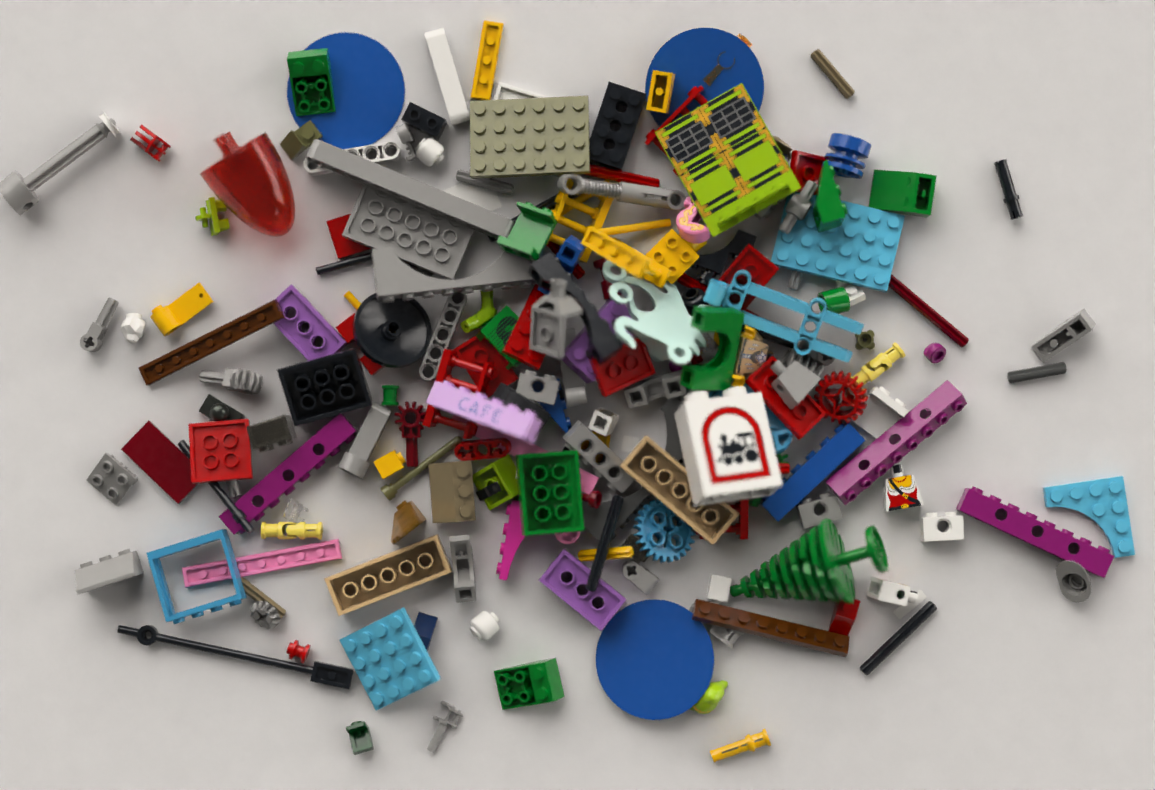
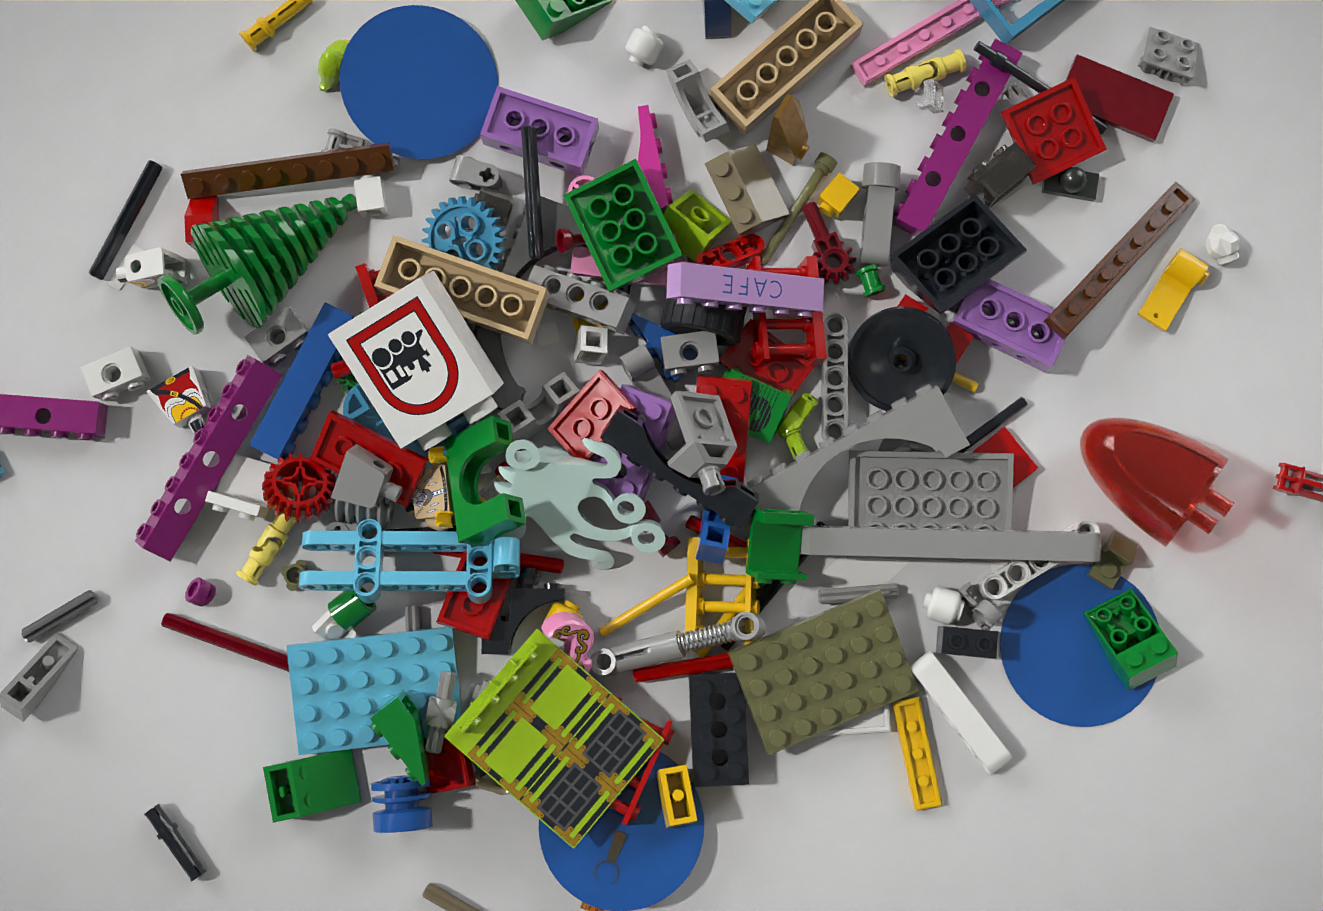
camera: 155 degrees right, 5 degrees down
(98, 329) = (1264, 225): light grey connector -> none
(216, 225) = (1172, 410): lime hips -> none
(235, 380) = (1071, 226): light grey gear -> none
(488, 491) = (702, 207): black sticker -> none
(613, 553) = (517, 187): yellow axle -> none
(626, 257) = (639, 558): yellow fence -> none
(673, 254) = (582, 585): yellow bracket -> none
(693, 297) = (534, 542): black head -> none

